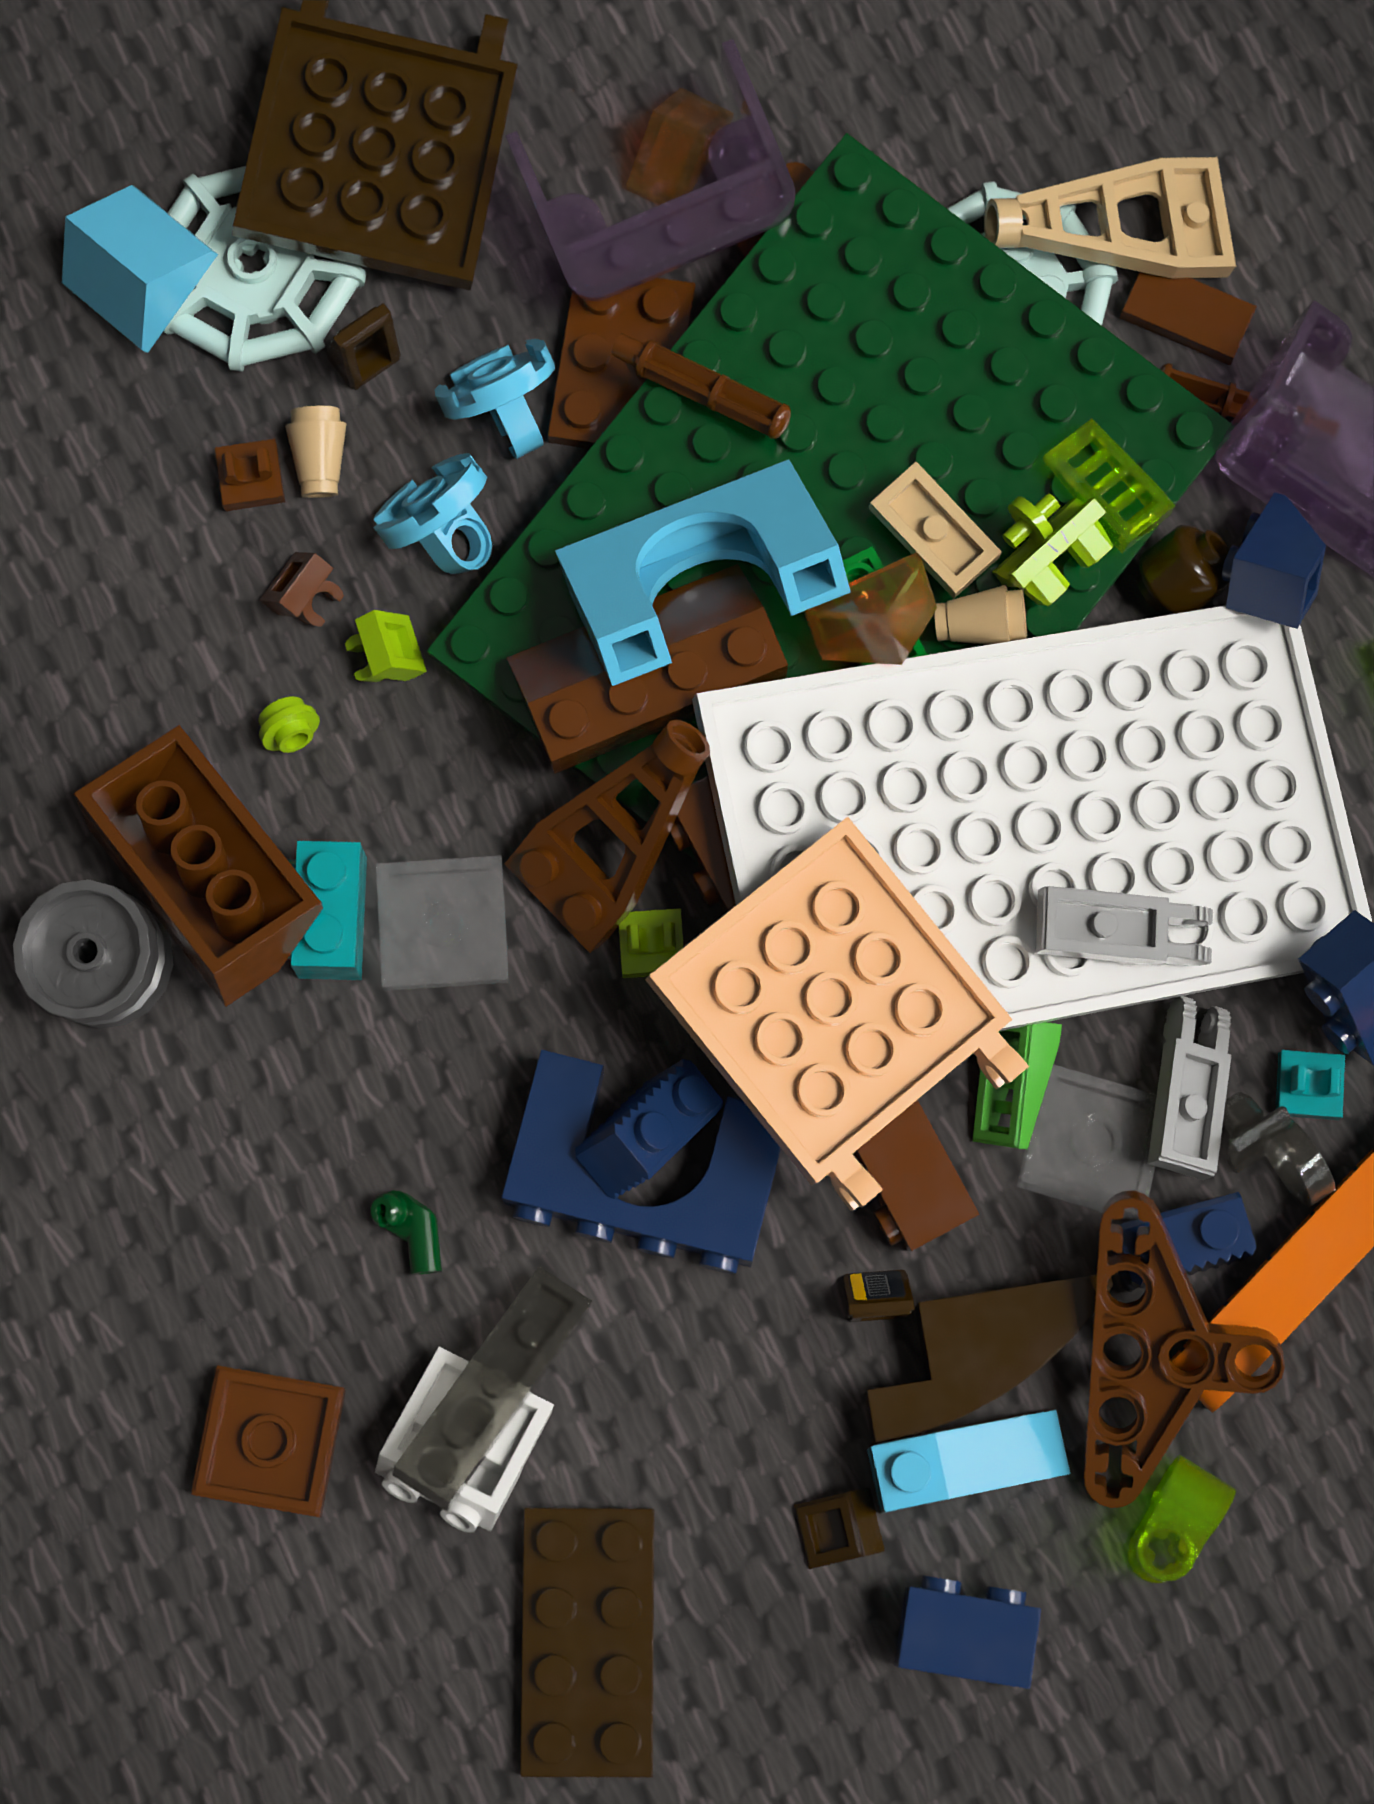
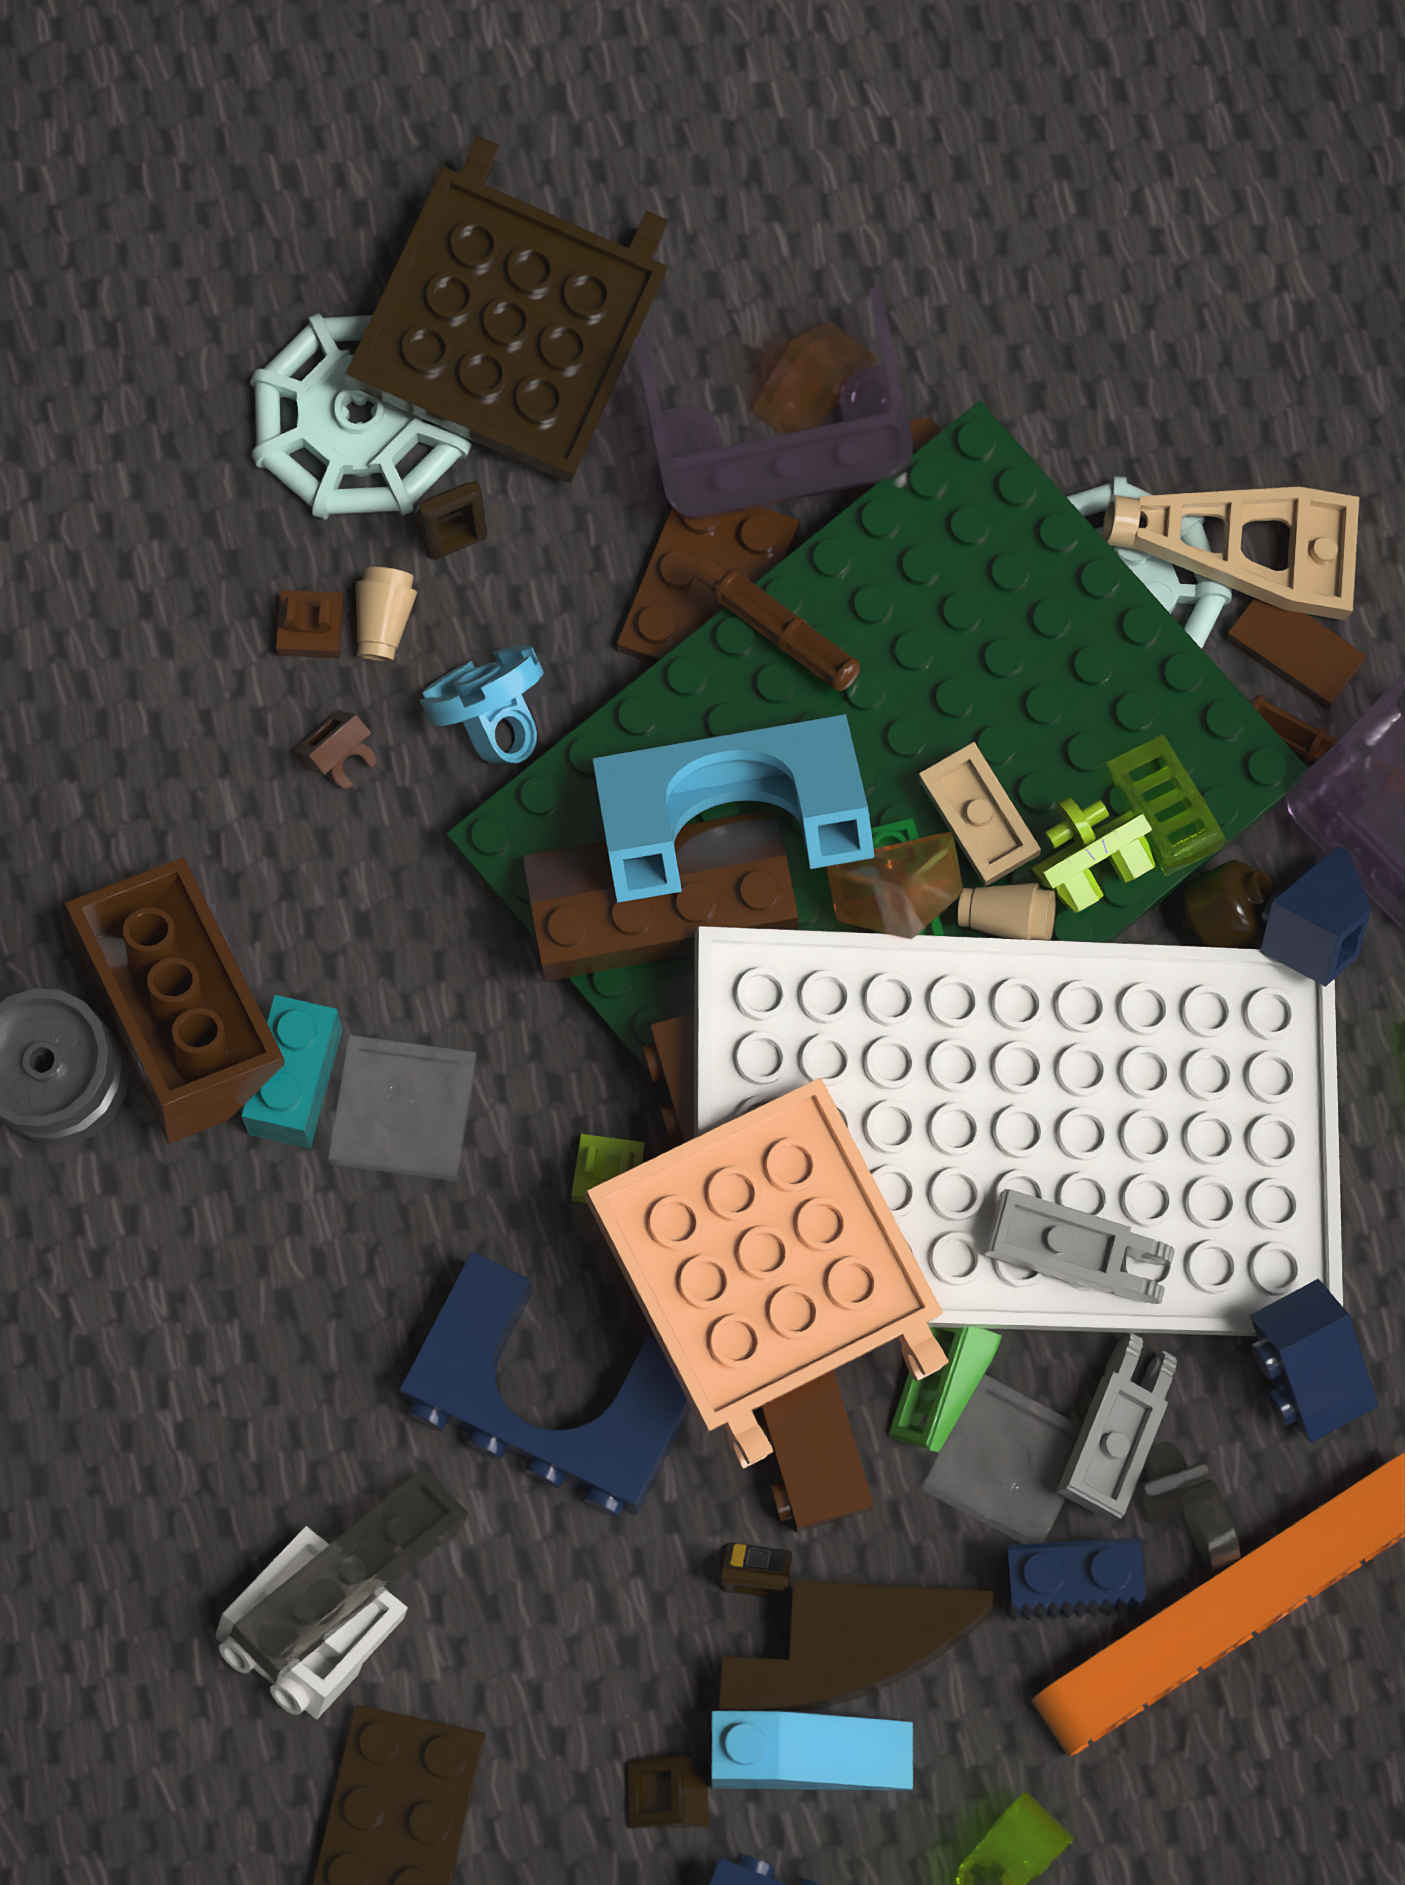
camera: 15 degrees right, 5 degrees down
(132, 263) = (239, 390): medium azure slope -> none
(269, 1441) = (117, 1584): reddish brown plate -> none
(287, 725) = (292, 880): lime plate -> none
(388, 646) = (409, 821): lime tile -> none
(412, 1223) = (307, 1401): dark green arm -> none
(498, 385) = (575, 582): medium azure tile -> none
(568, 879) = (535, 1085): reddish brown plate -> none
(649, 1128) = (561, 1350): dark blue brick -> none
(1152, 1383) = (1012, 1712): reddish brown beam -> none
(1311, 1084) = (1245, 1451): teal tile -> none

